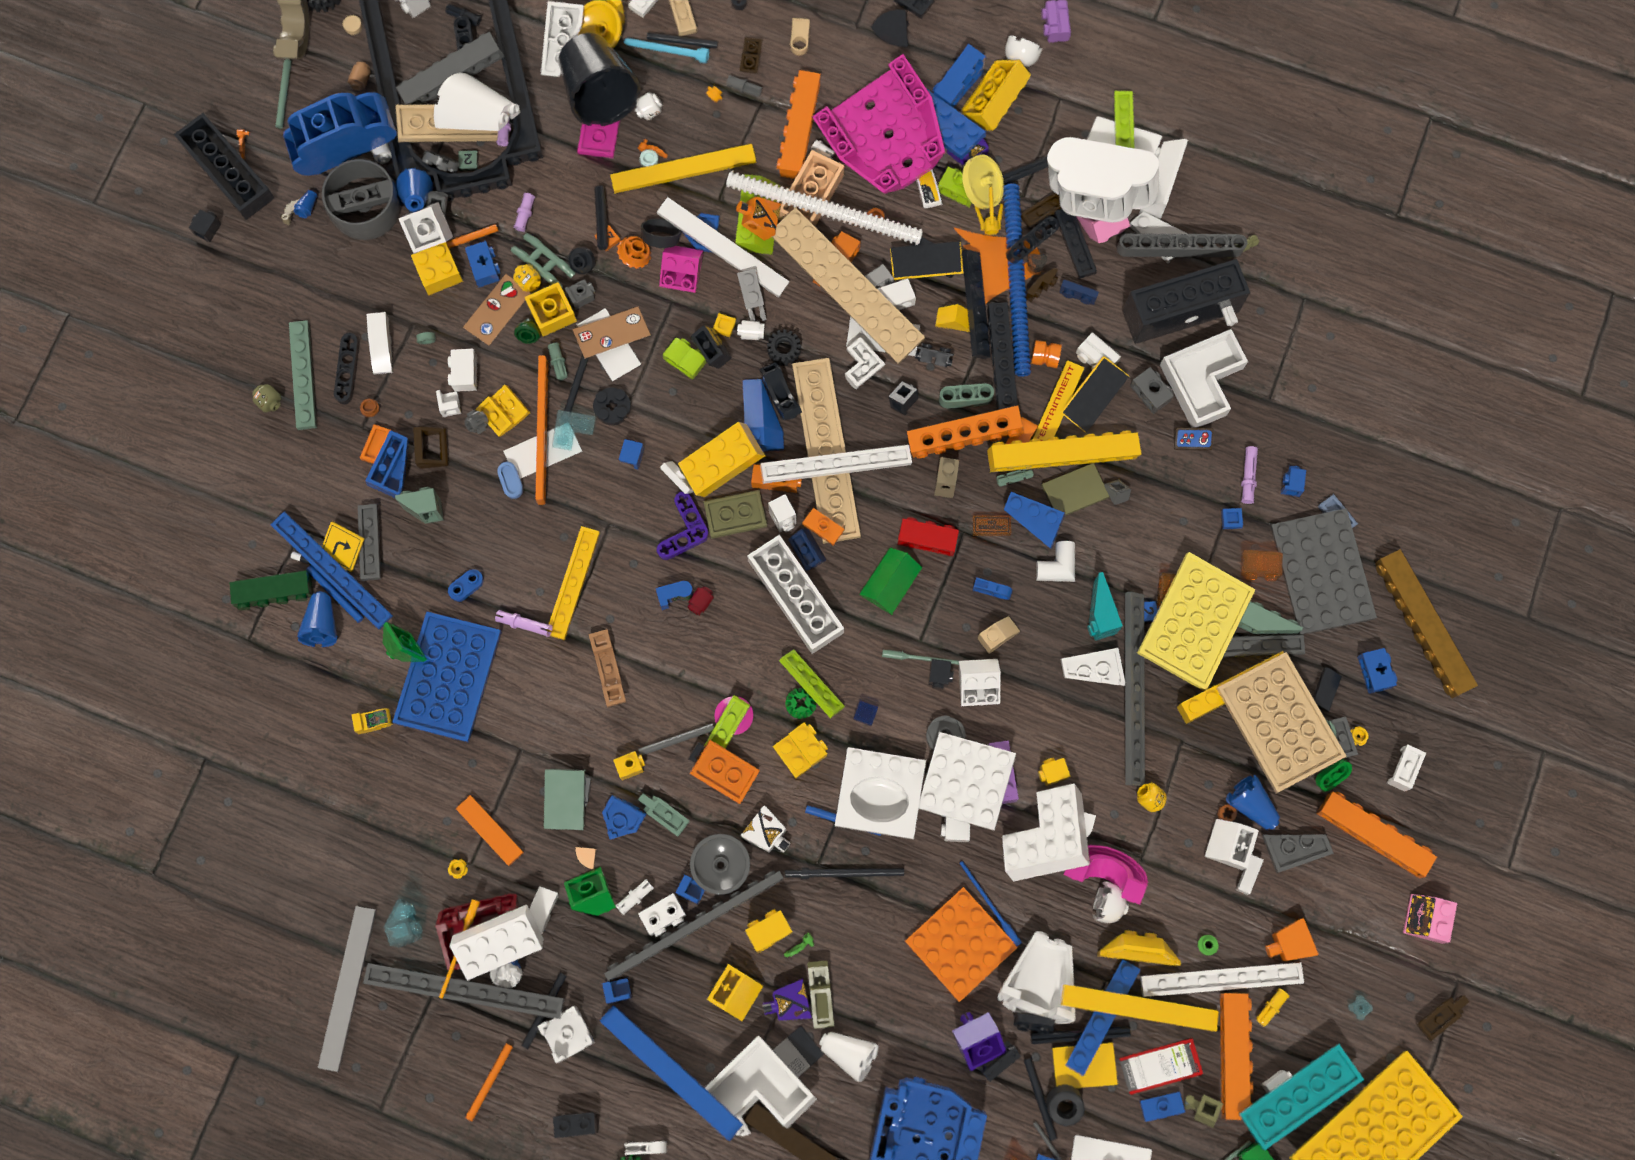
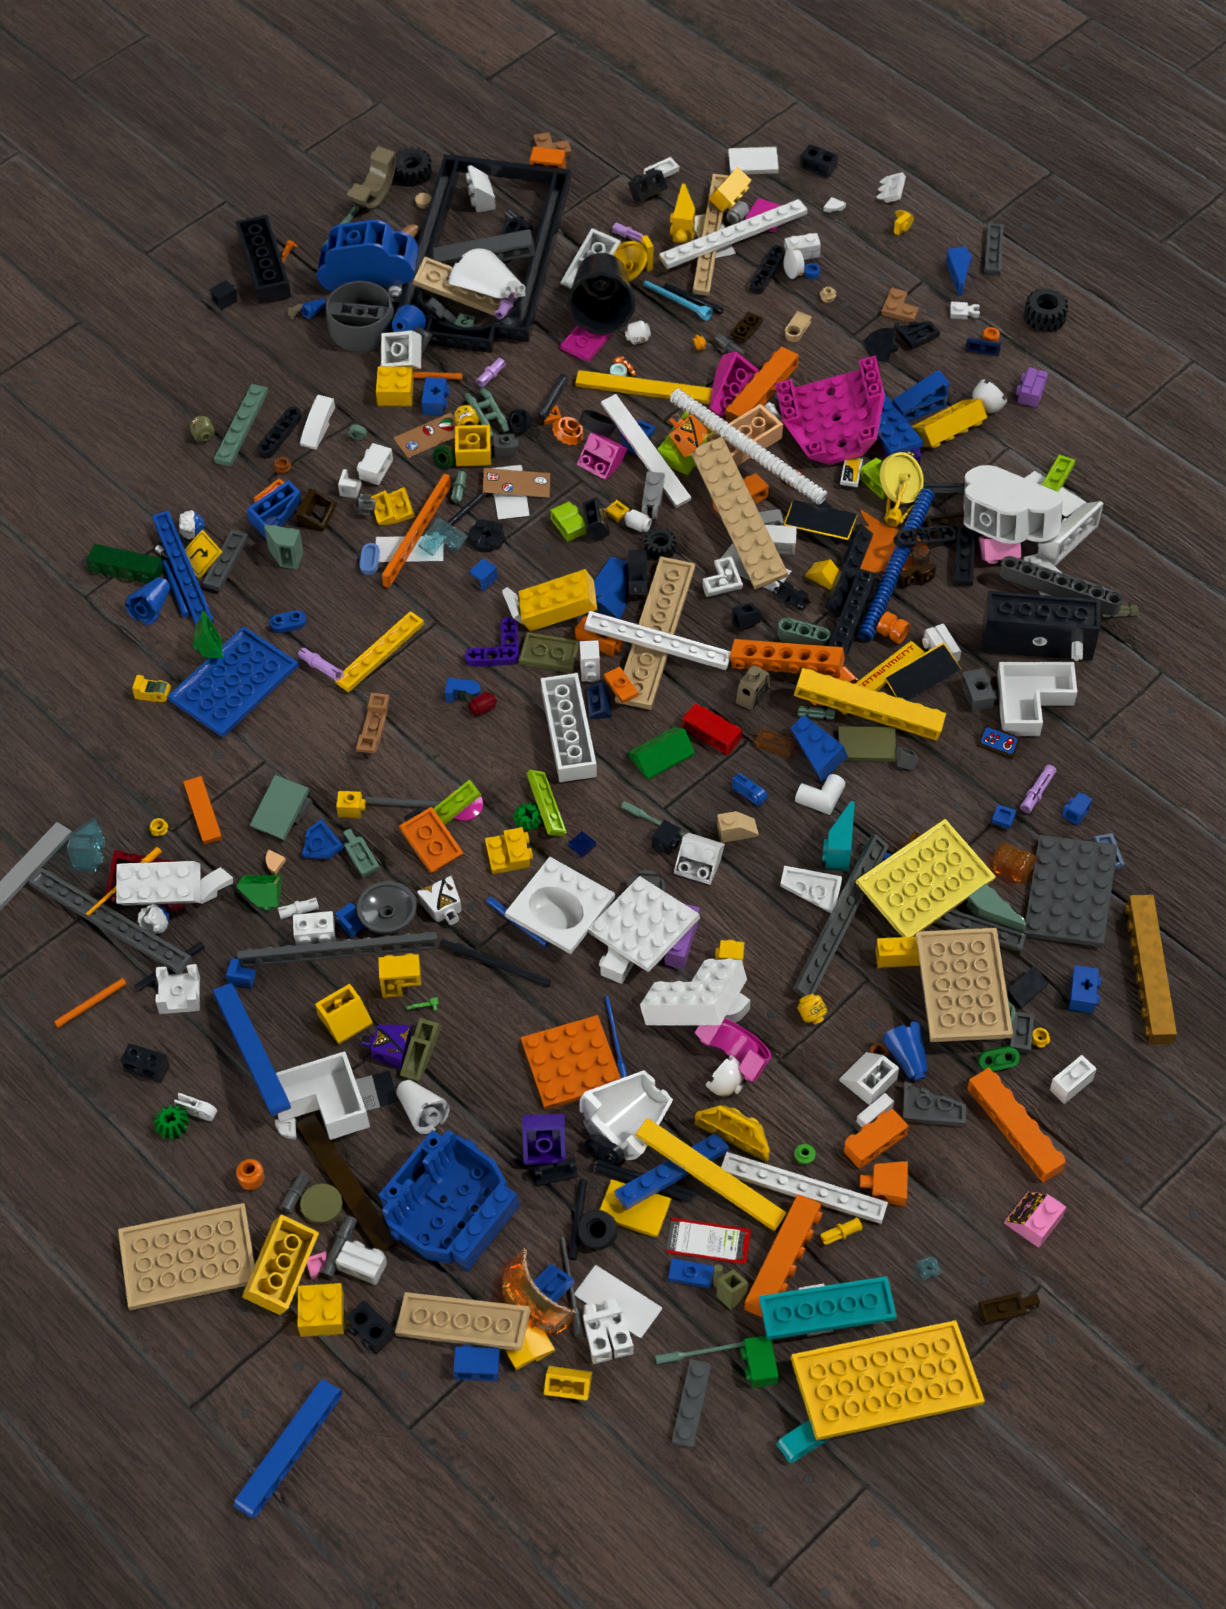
camera: 25 degrees right, 20 degrees down
(314, 517) = (190, 524): none -> white piece
(766, 125) = (729, 381): none -> dark pink wedge
(1079, 292) = (948, 592): dark blue plate -> none
(1262, 903) = (875, 1138): none -> orange brick

